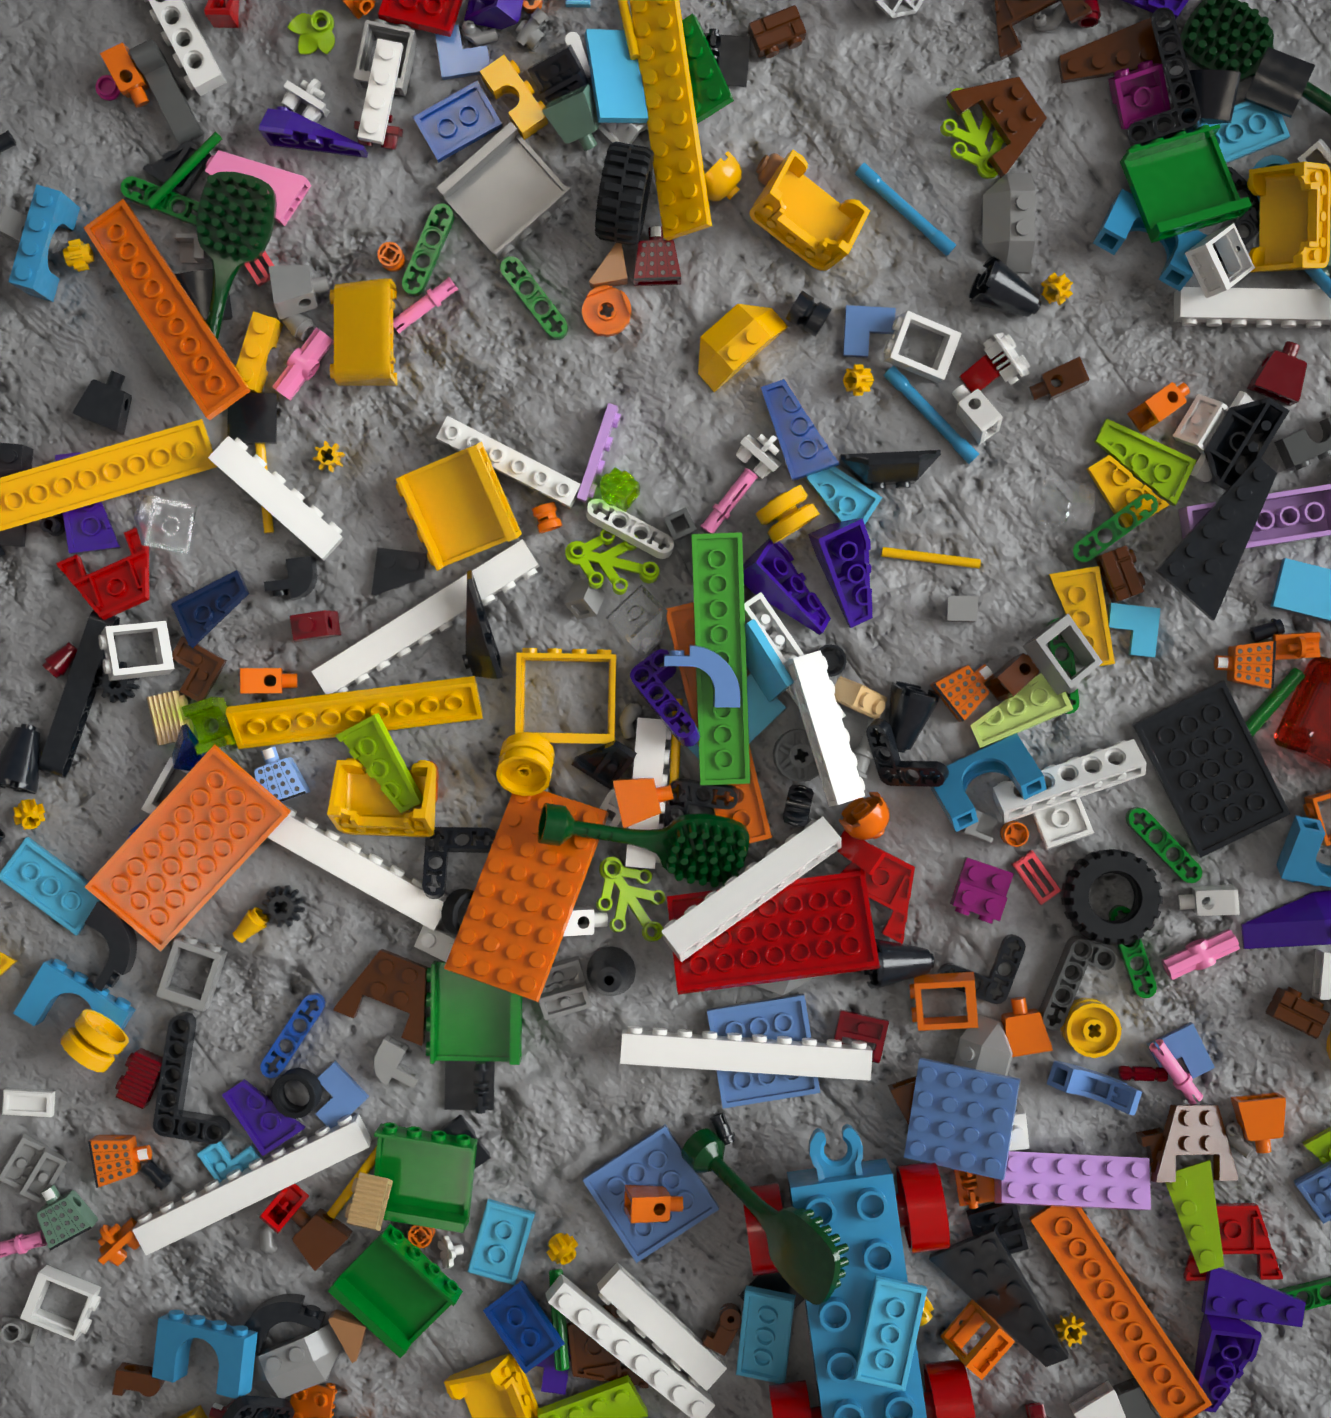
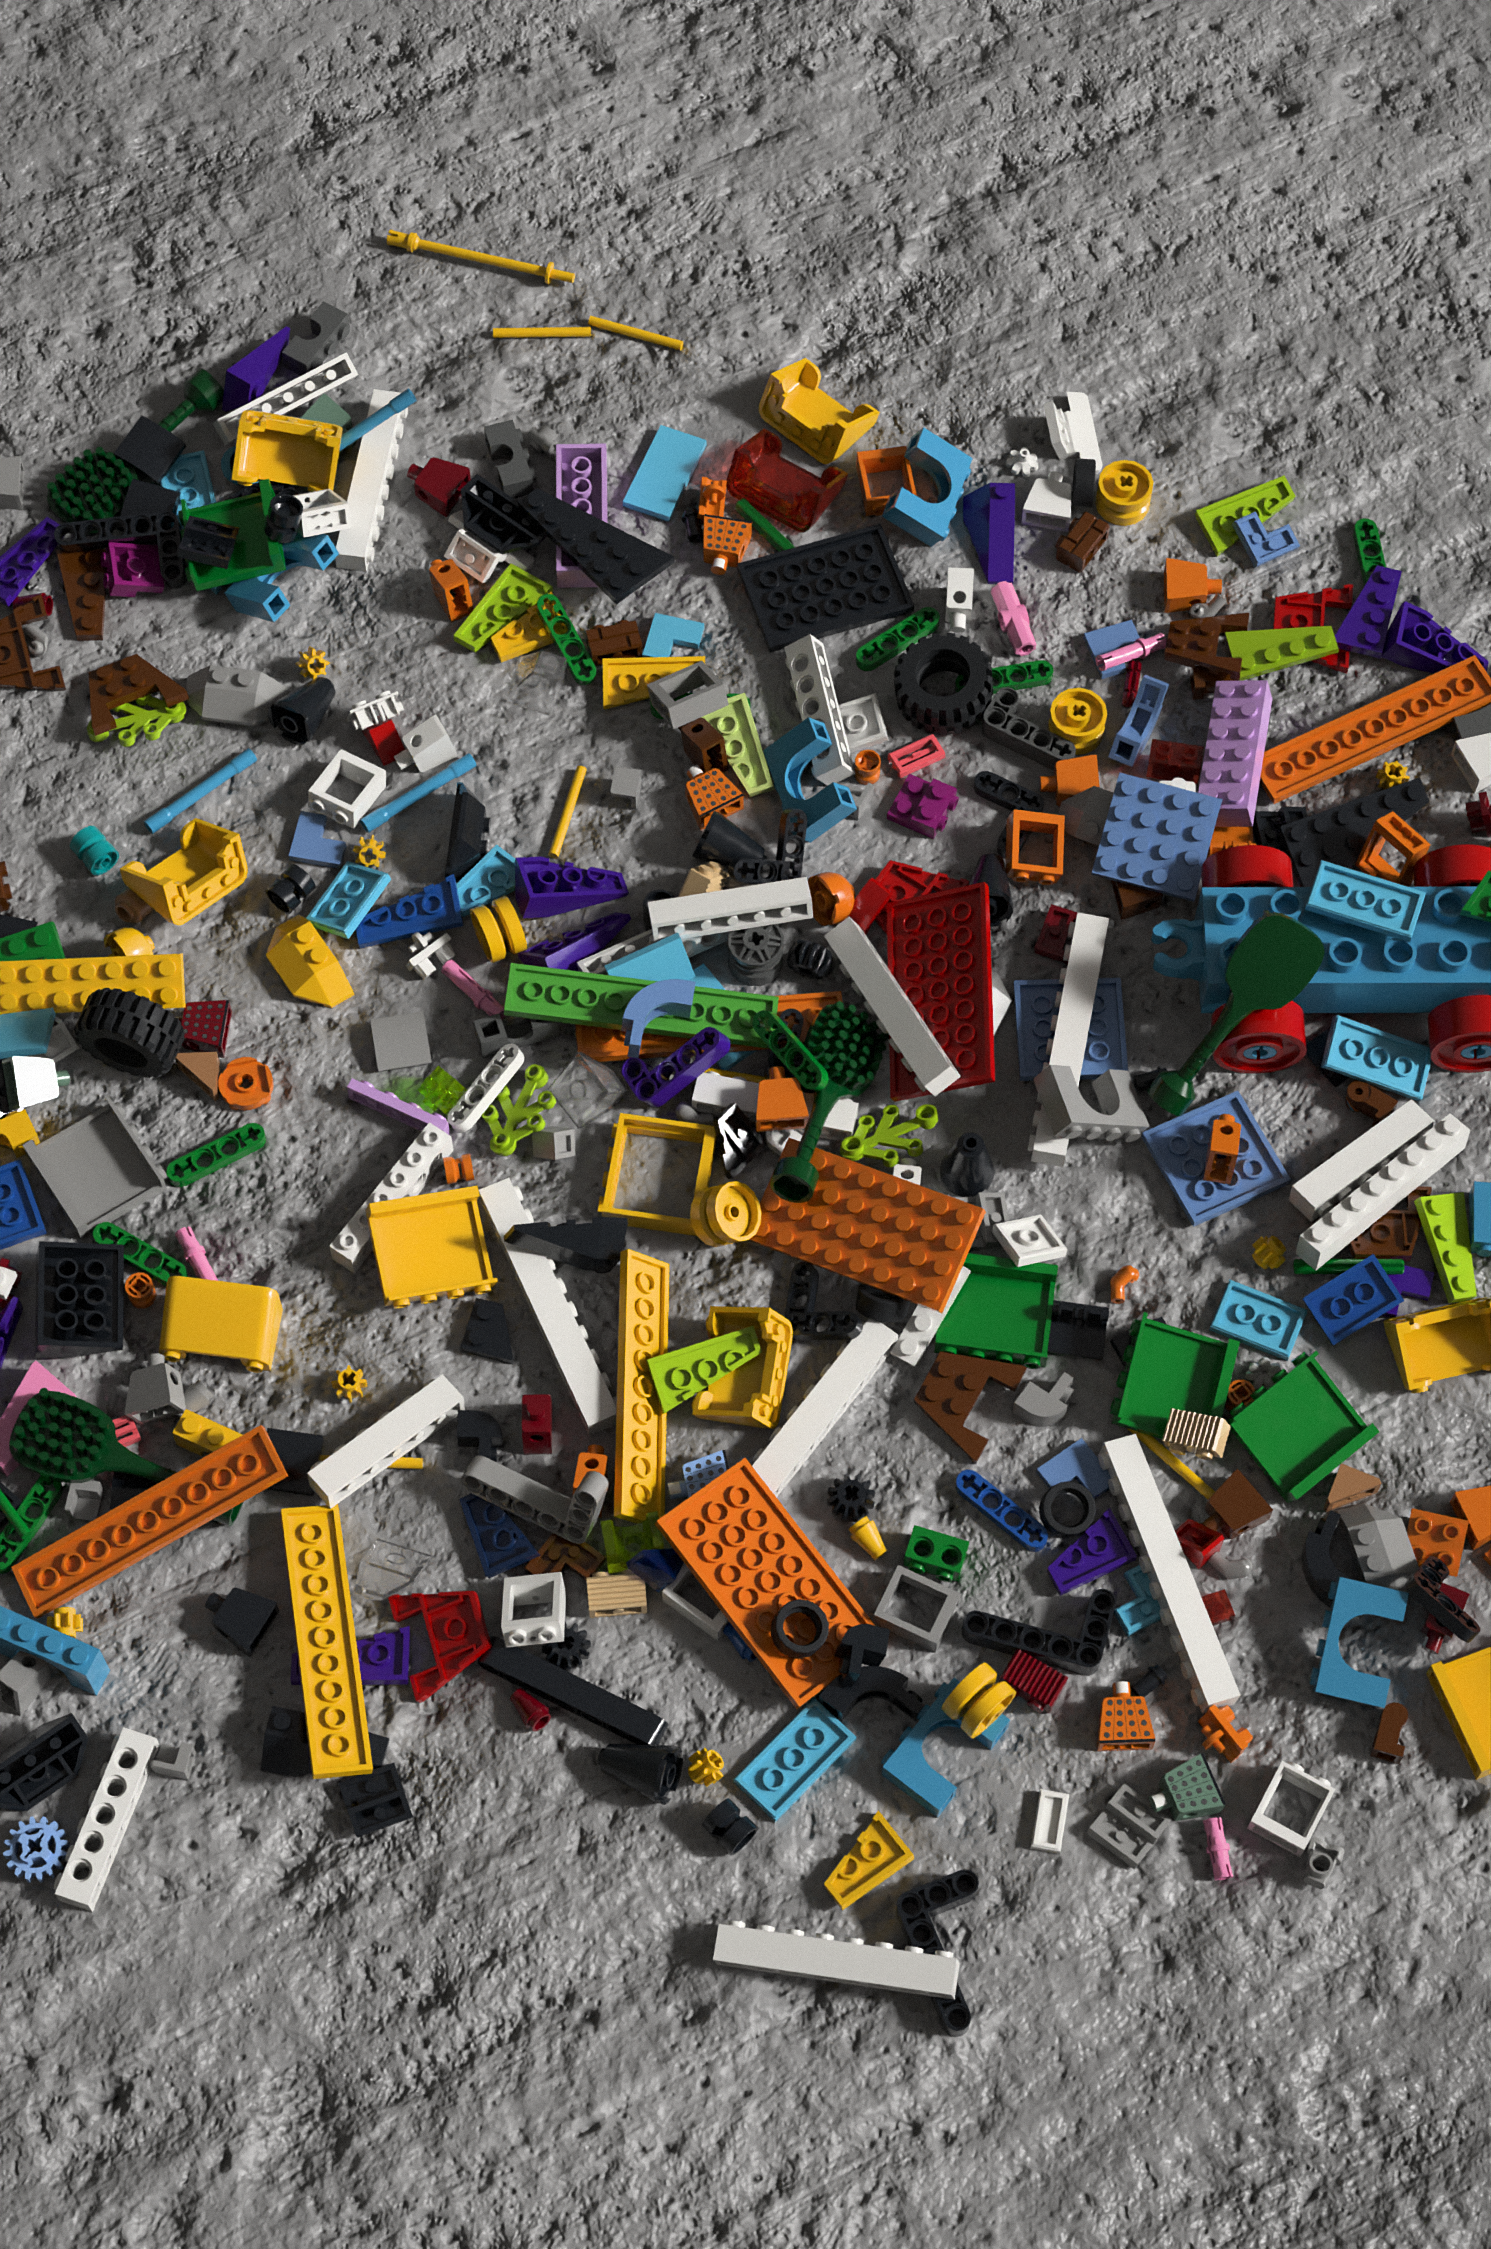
camera: 85 degrees left, 25 degrees down
(53, 525) = (372, 1701): black pin -> none
(132, 894) = (809, 1609): none -> black tyre
(139, 929) = (859, 1646): none -> black brick
(223, 672) = (537, 1503): none -> light grey beam
(228, 1228) = (1218, 1607): none -> clear red plate
(247, 986) = (938, 1546): none -> green brick
(303, 364) = (239, 1397): bright pink piece -> none
(372, 204) = (78, 1299): none -> black slope
(521, 1118) = (1119, 1280): none -> orange arm
(542, 1036) = (1029, 1240): none -> white plate
(668, 443) = (400, 1041): none -> light grey slope
(673, 1106) = (1071, 1115): none -> light grey arch
(684, 800) = (788, 1052): none -> green beam
(805, 369) = (348, 899): none -> medium azure tile
(820, 126) = (94, 850): none -> teal wheel
(1059, 1123) = (1174, 760): none -> clear red brick
(1071, 375) = (406, 666): reddish brown torso -> none
(1169, 160) = (208, 542): none -> black slope
(1197, 228) = (283, 518): none -> black wheel

